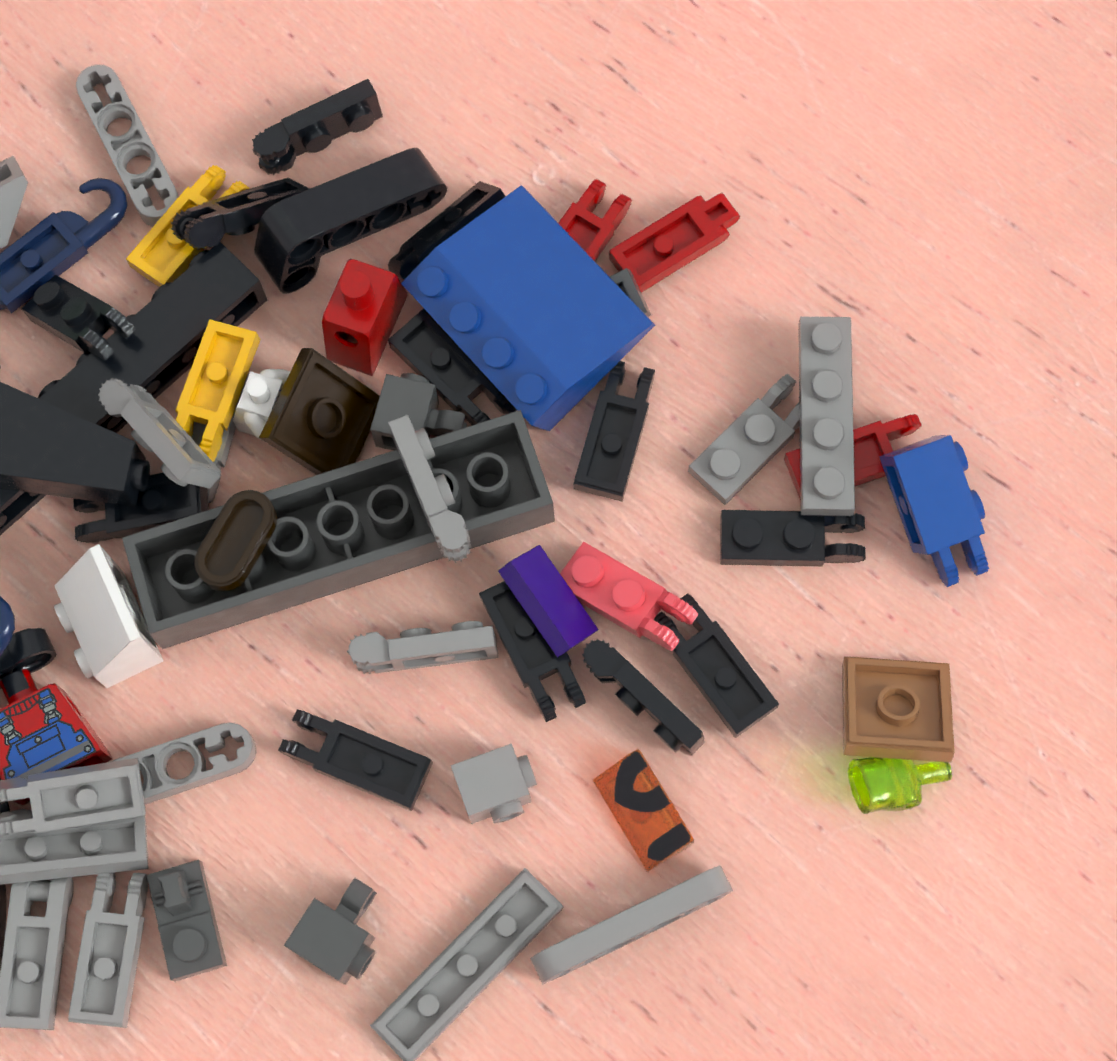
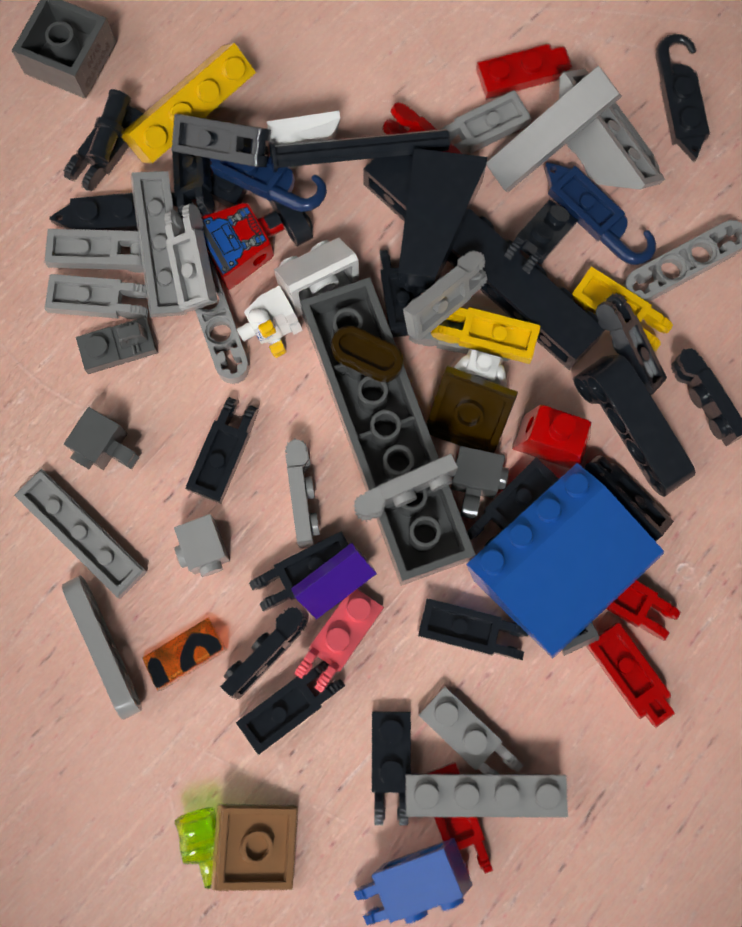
camera: 85 degrees right, 5 degrees up
(167, 688) = (270, 319): none -> white piece

